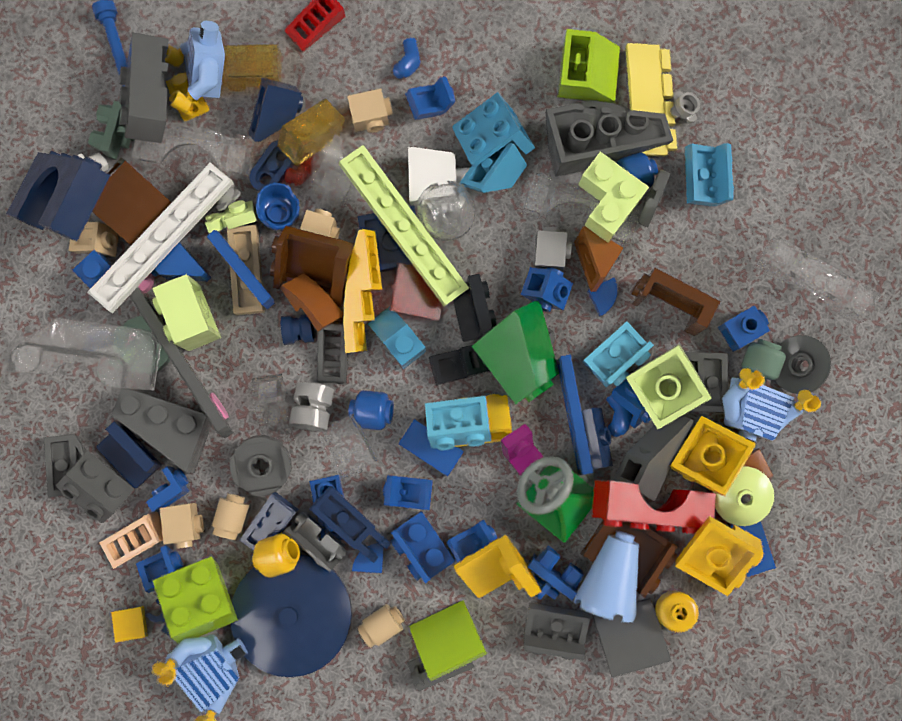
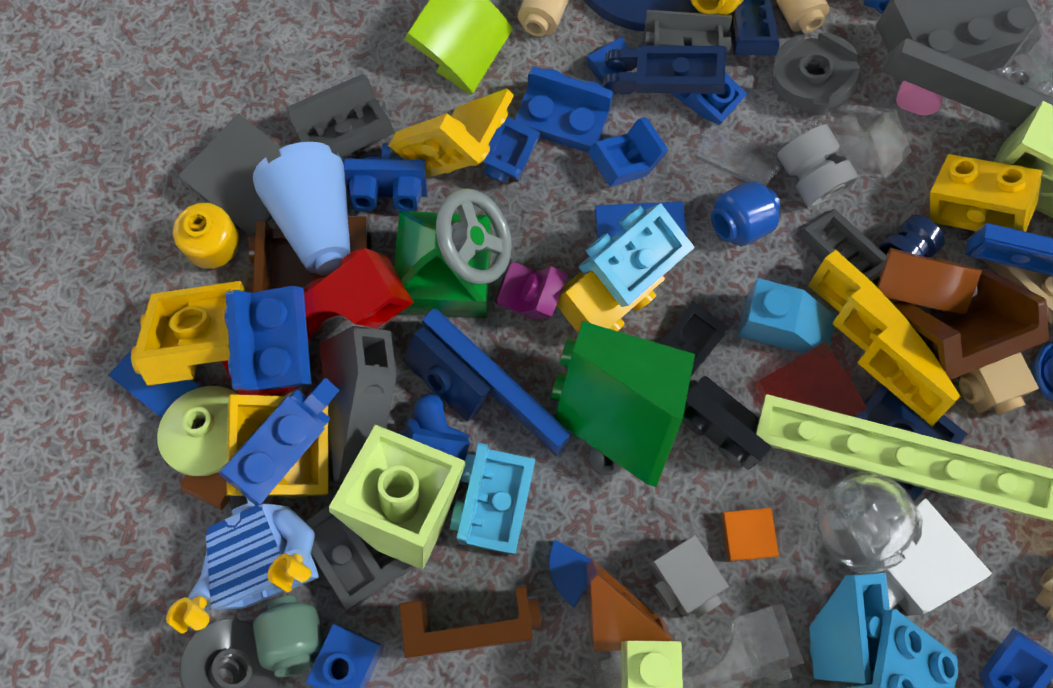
camera: 140 degrees right, 10 degrees down
(239, 324) = (983, 192): none -> yellow brick
(502, 249) = (749, 534): none -> orange tile
(547, 287) = (653, 517): blue brick -> none
(686, 512) = (267, 339): none -> blue bracket
(712, 454) = (279, 442): none -> blue hinge

